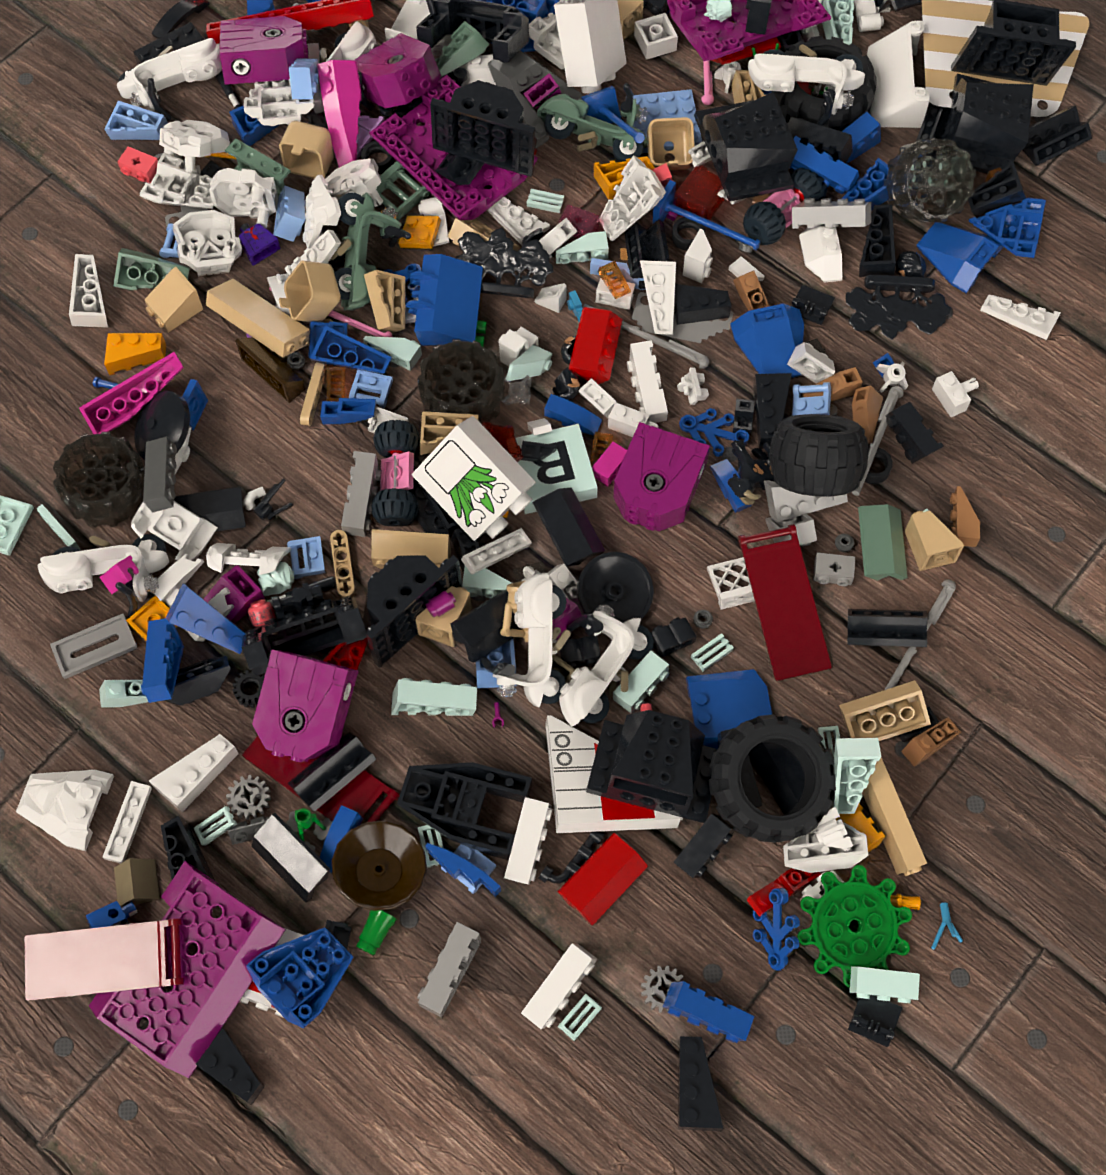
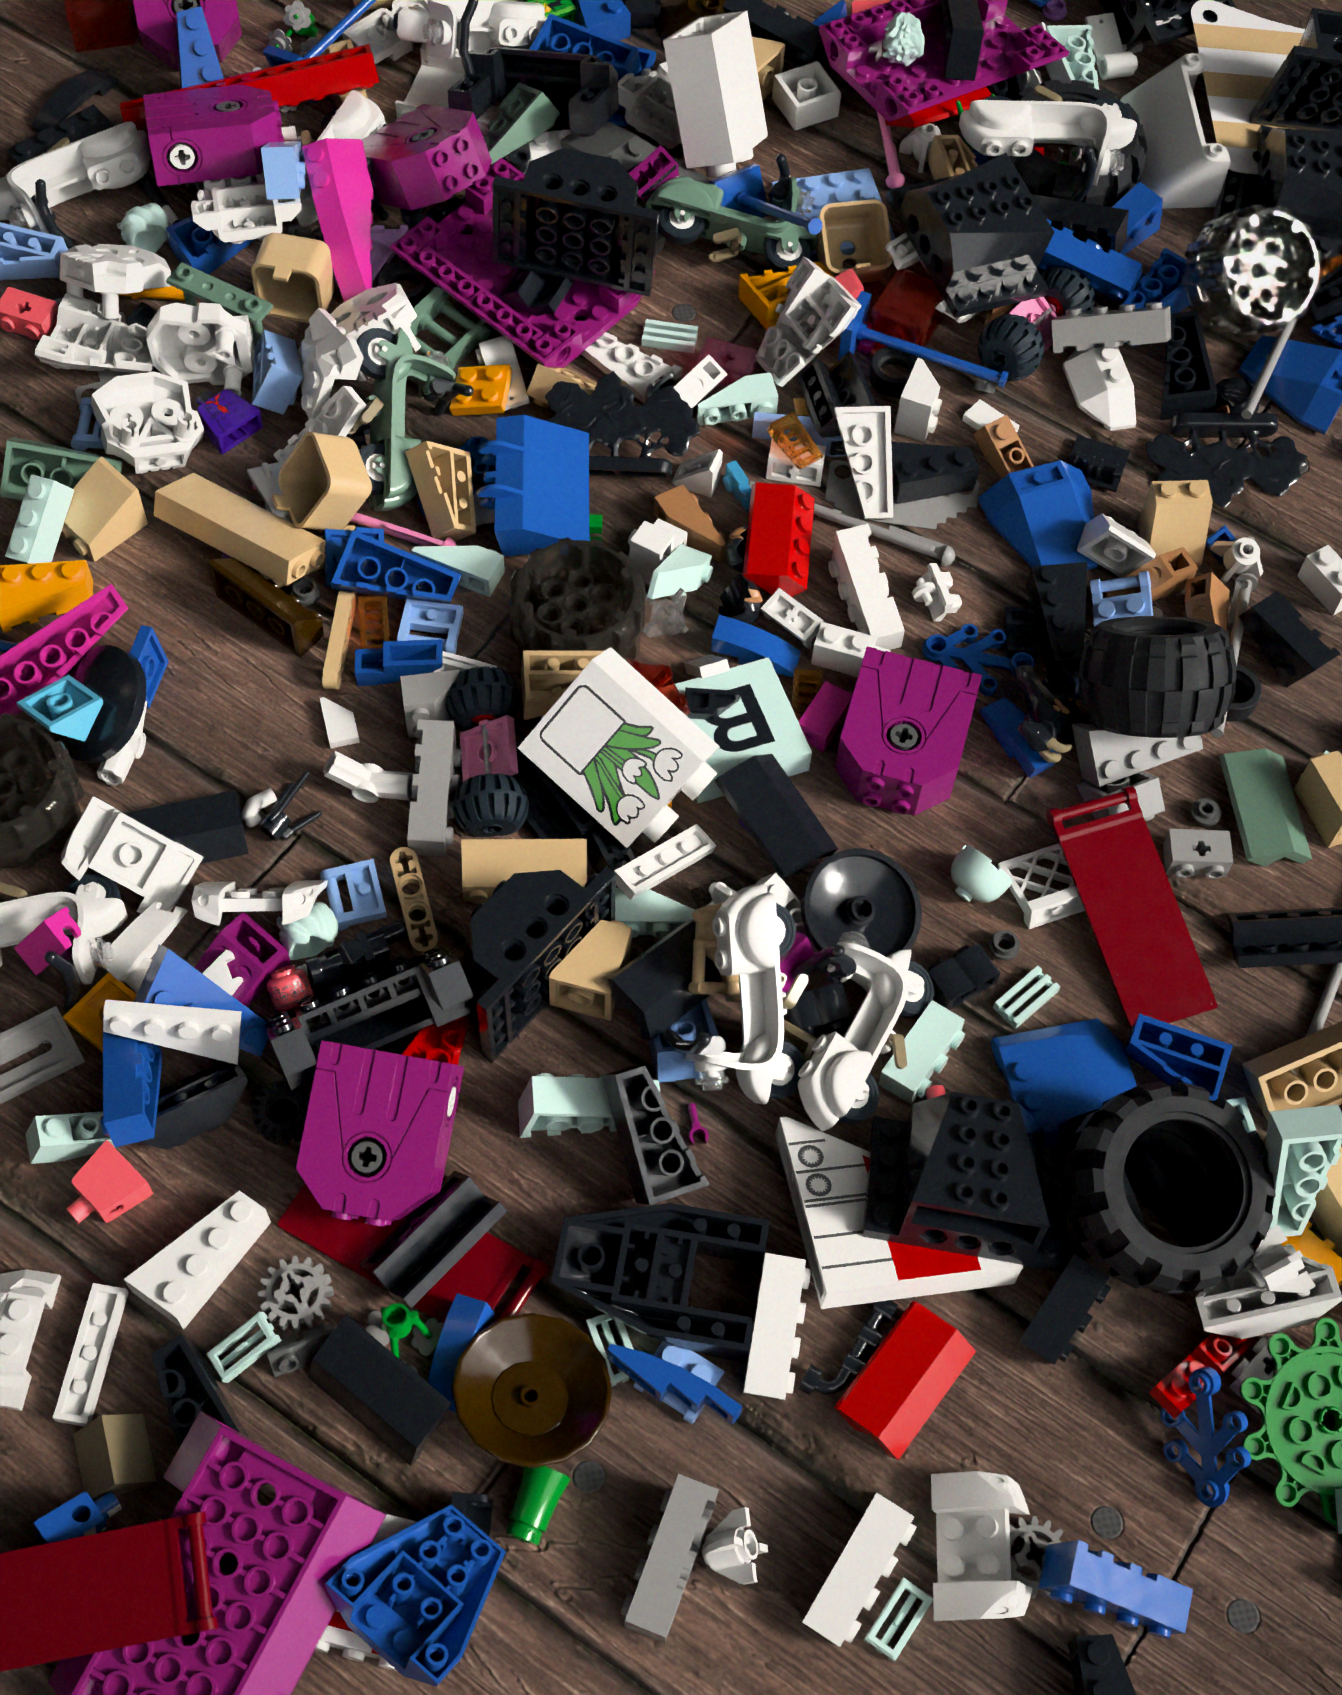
camera: 10 degrees left, 5 degrees down
(135, 306) = (39, 521): none -> light aqua brick
(138, 428) = (64, 707): none -> medium azure slope
(144, 724) = (107, 1186): none -> coral torso
(159, 474) = (104, 775): dark grey brick -> none
(192, 634) = (183, 1028): none -> white wing
(216, 110) = (145, 227): none -> light aqua hair
(308, 448) = (339, 724): none -> white tile
(321, 486) = (367, 779): none -> white piece
(360, 436) = (426, 697): none -> light grey slope
(440, 604) = (589, 948): magenta brick -> none
(466, 724) = (649, 1138): none -> black wedge
(486, 967) = (732, 1548): none -> white brick
(536, 321) = (683, 511): none -> medium nougat slope
(630, 979) = (975, 1546): none -> white piece
(691, 575) = (977, 876): none -> light aqua cylinder
(800, 698) = (1178, 1054): none -> blue wedge
(854, 348) = (1177, 517): none -> tan slope
(936, 241) = (1263, 378): none -> light grey bar

